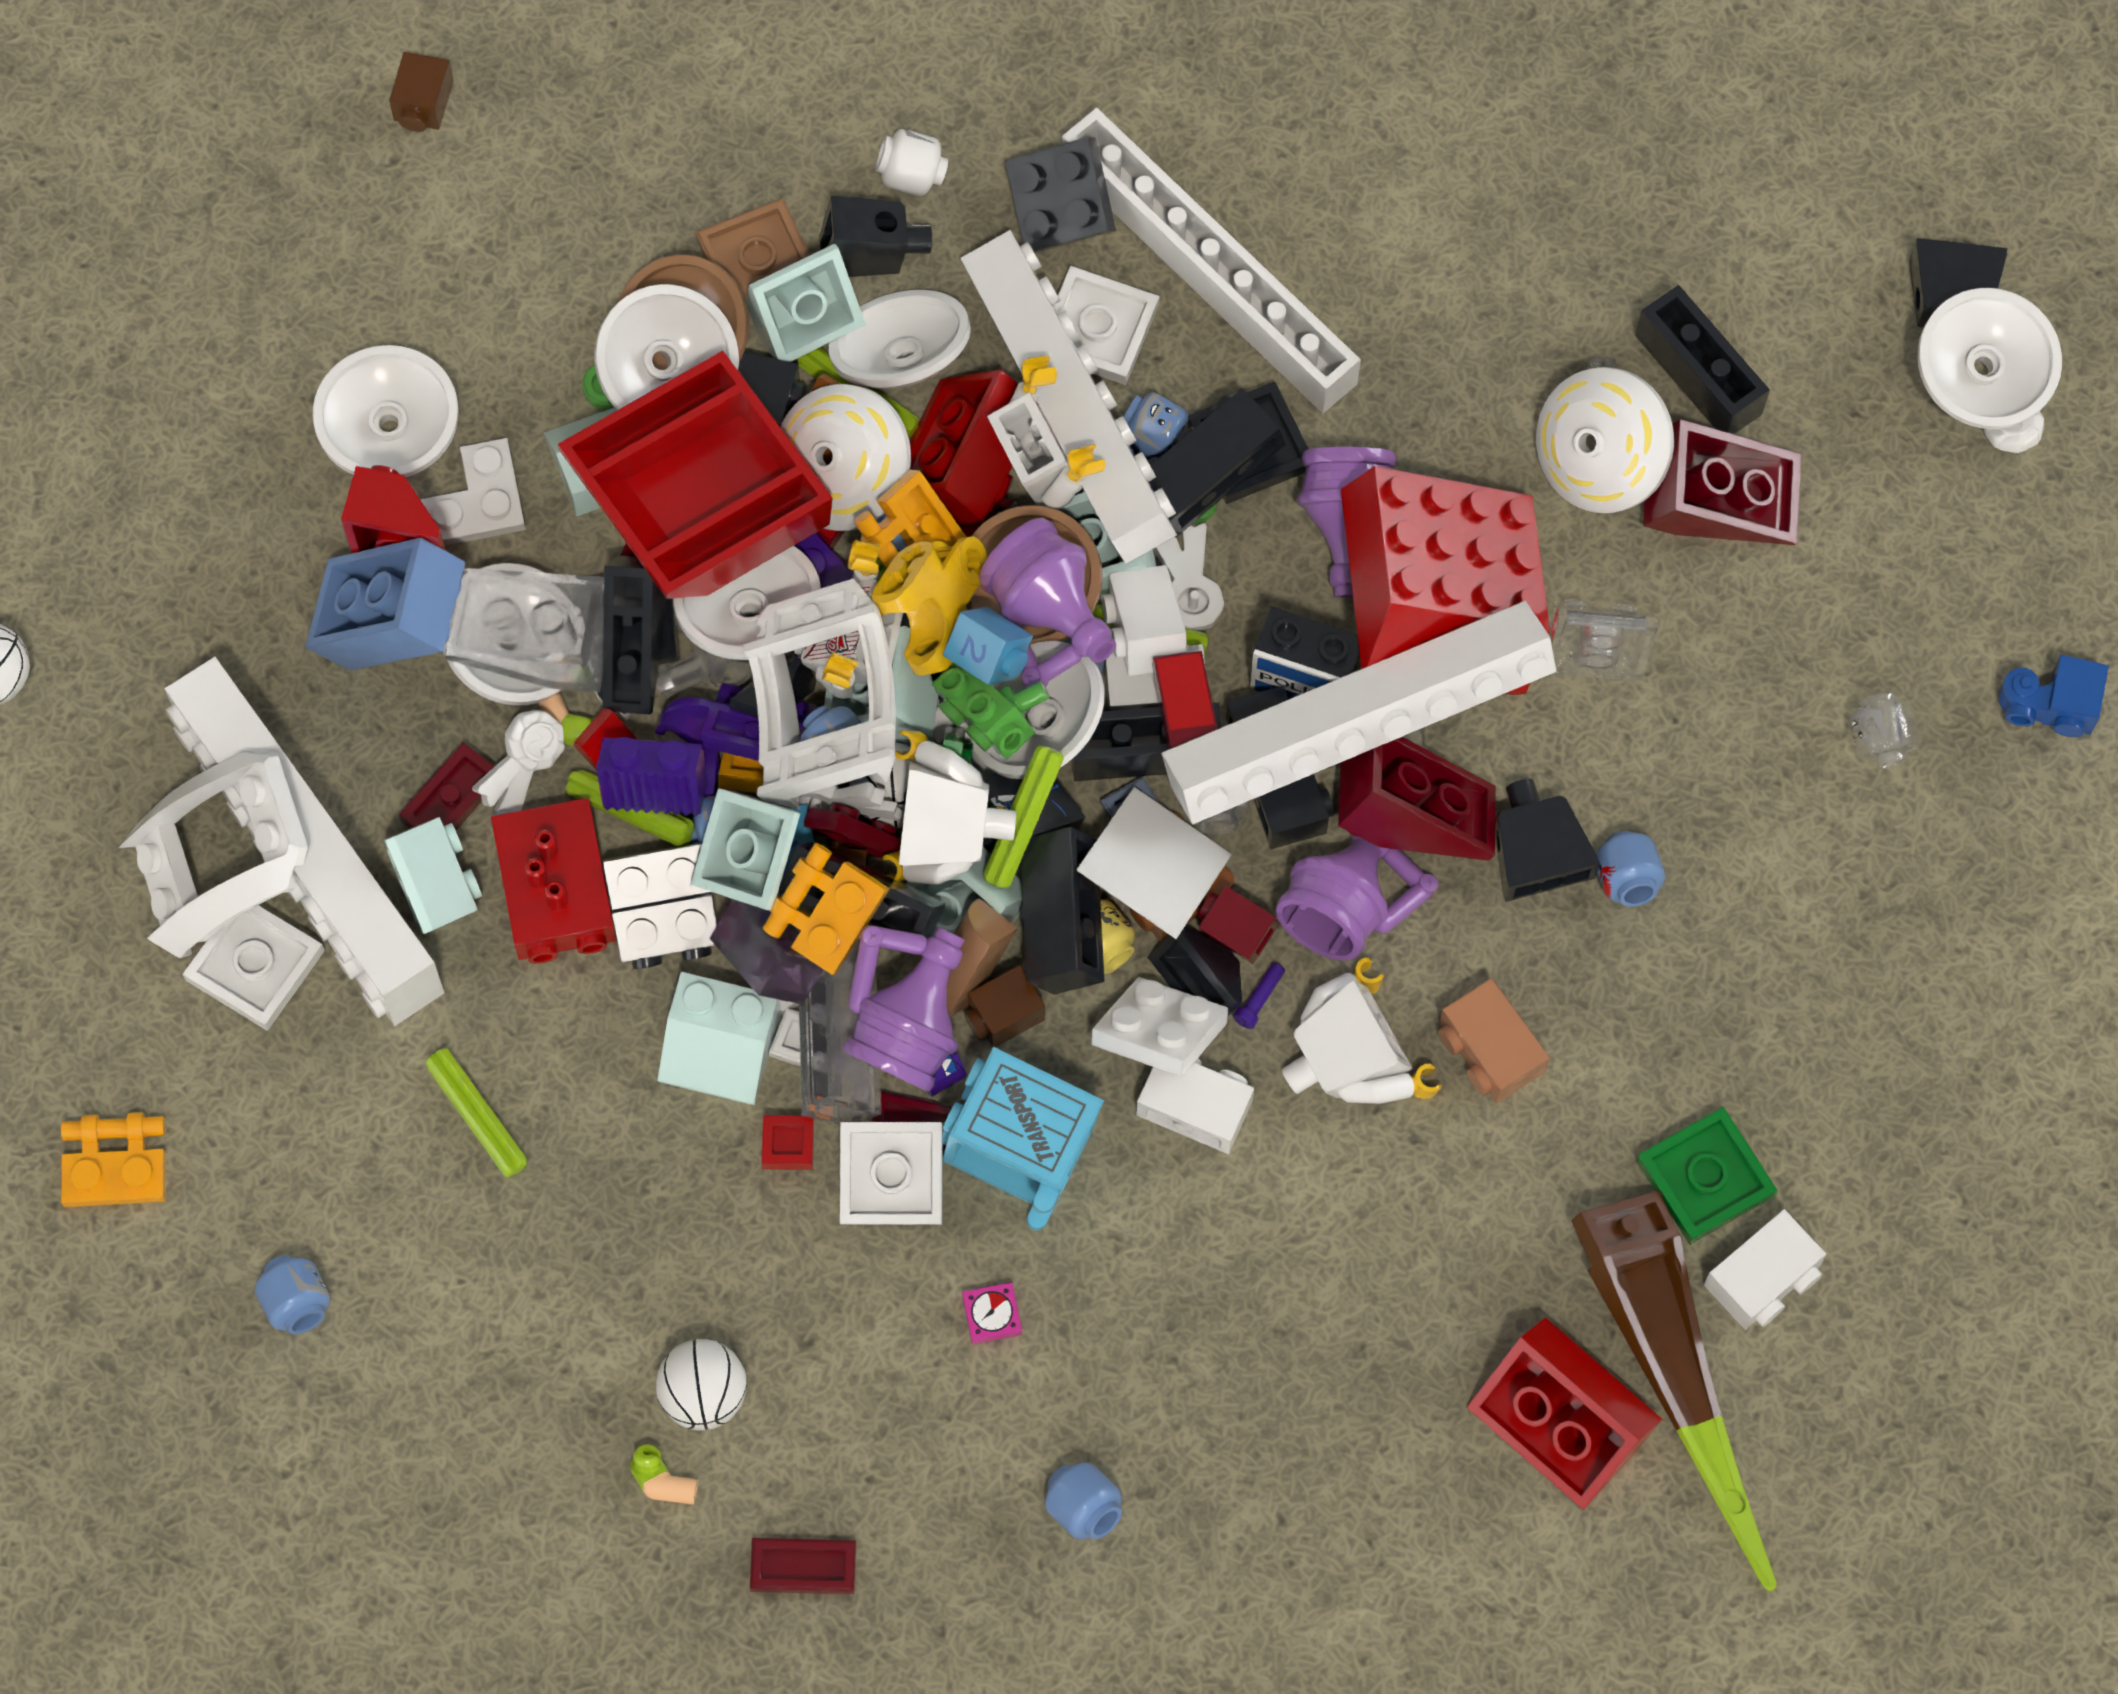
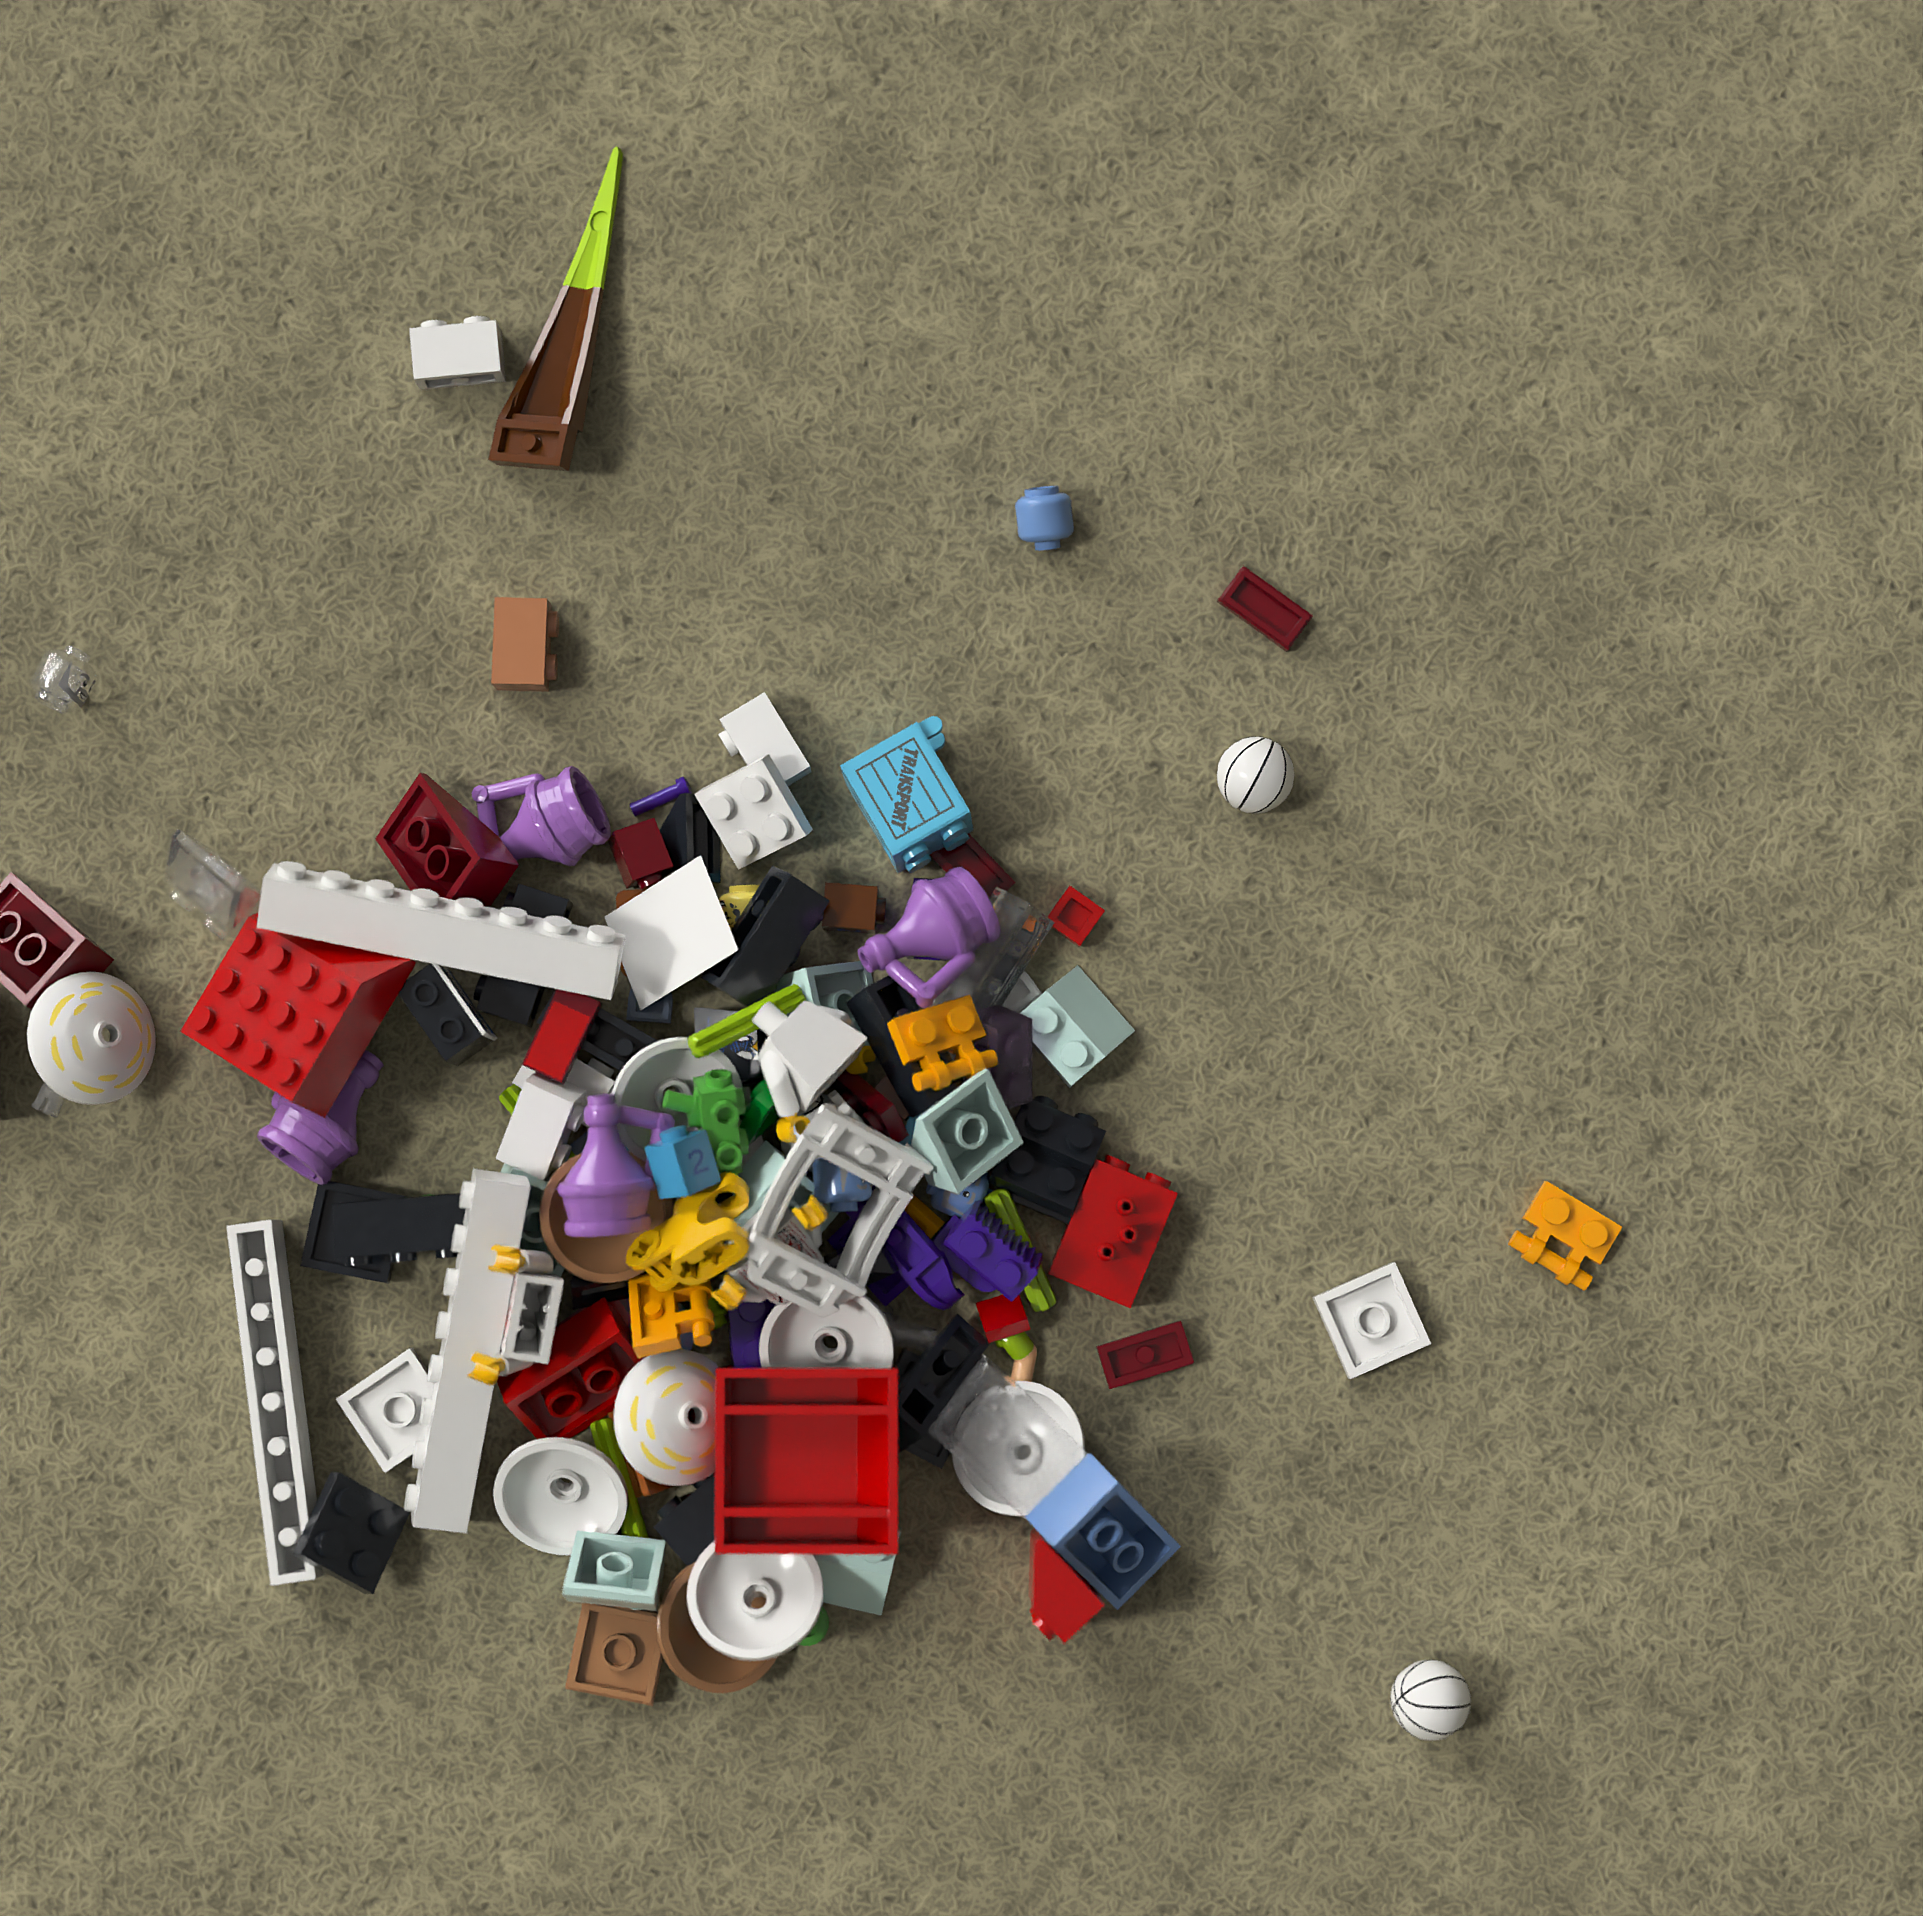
camera: 150 degrees left, 15 degrees up
(160, 856) = (1400, 1410): white wedge -> none
(292, 1294) = (1500, 1041): medium blue head -> none
(333, 882) = (1282, 1385): white brick -> none
(382, 387) = (1002, 1739): white dish -> none
(431, 874) = (1205, 1289): light aqua slope -> none
(476, 1112) = (1281, 1094): lime axle -> none
(489, 504) = (964, 1580): white plate -> none
(531, 744) = (1061, 1351): white piece -> none
(657, 1481) = (1326, 735): arm -> none
(872, 235) = (538, 1610): black torso -> none
(891, 1173) = (1017, 839): white plate -> none
(911, 162) = (443, 1651): white head -> none
(985, 939) = (837, 958): medium nougat brick -> none
(992, 1313) = (1014, 696): tile -> none
(1155, 424) = (417, 1291): medium blue head -> none
(1197, 596) = (483, 1137): white piece -> none
(1352, 1045) = (625, 707): white torso -> none
(1540, 844) = (378, 766): black torso -> none
(1564, 1412) = (669, 352): red slope -> none
(1630, 868) = (328, 704): medium blue head -> none
(1706, 1175) = (445, 449): green plate -> none

